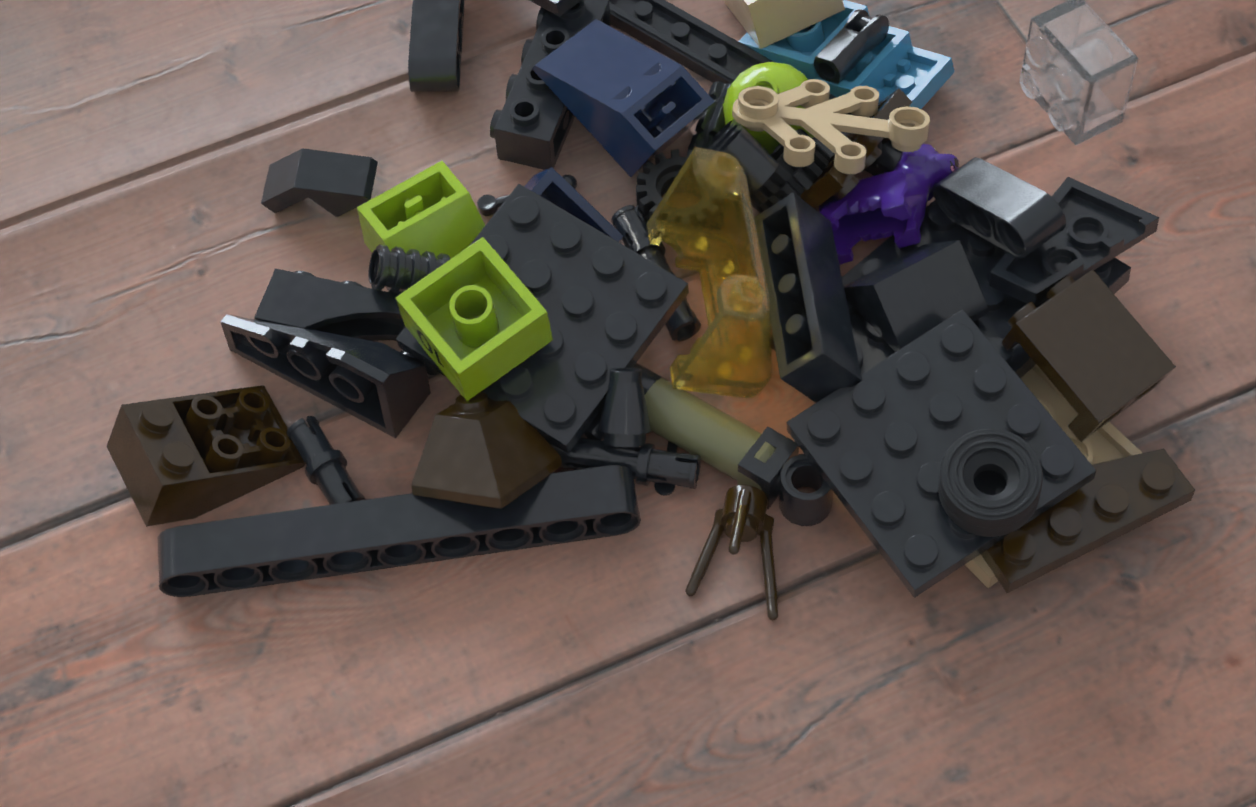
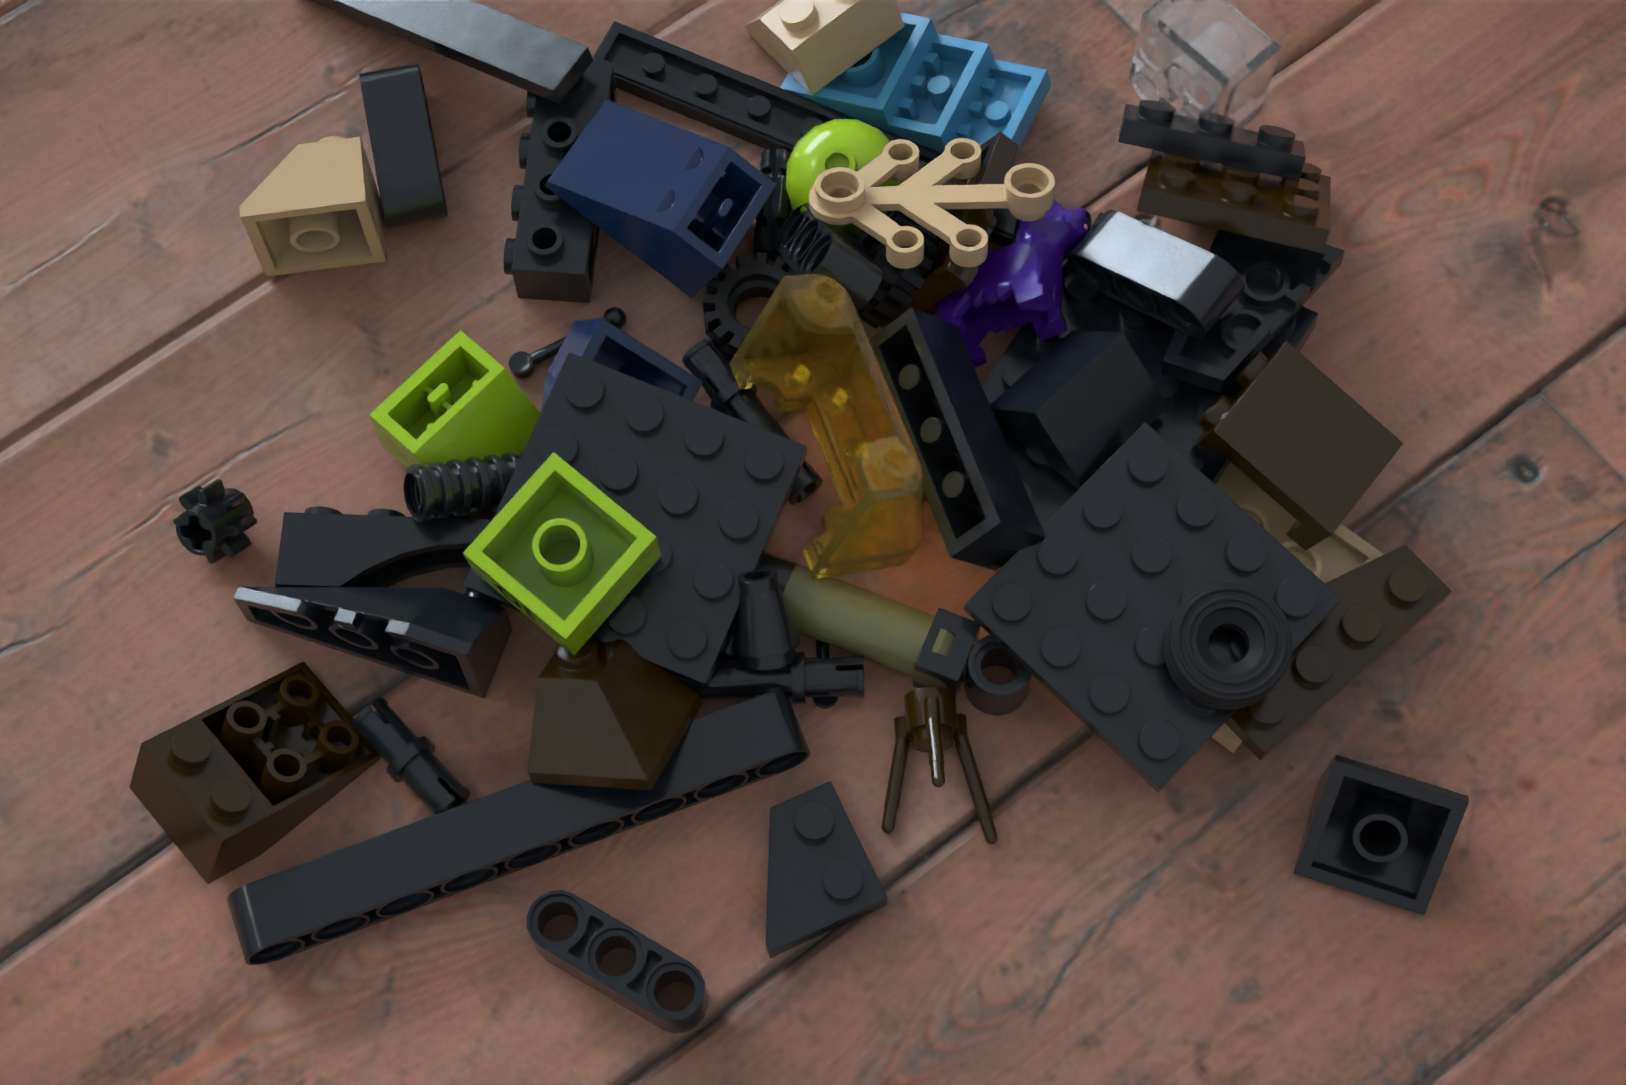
camera: 15 degrees left, 10 degrees up
(222, 269) = (215, 521): none -> black gear
(328, 178) = (315, 371): black slope -> none
(356, 64) = (317, 210): none -> tan slope
(441, 621) = (601, 933): none -> black beam
(622, 611) = (815, 871): none -> black wing
(850, 45) = (923, 77): black bar -> none
(1071, 122) = (1212, 139): none -> black plate
(1082, 164) = (1240, 200): none -> dark brown plate
(1094, 665) = (1379, 833): none -> black slope

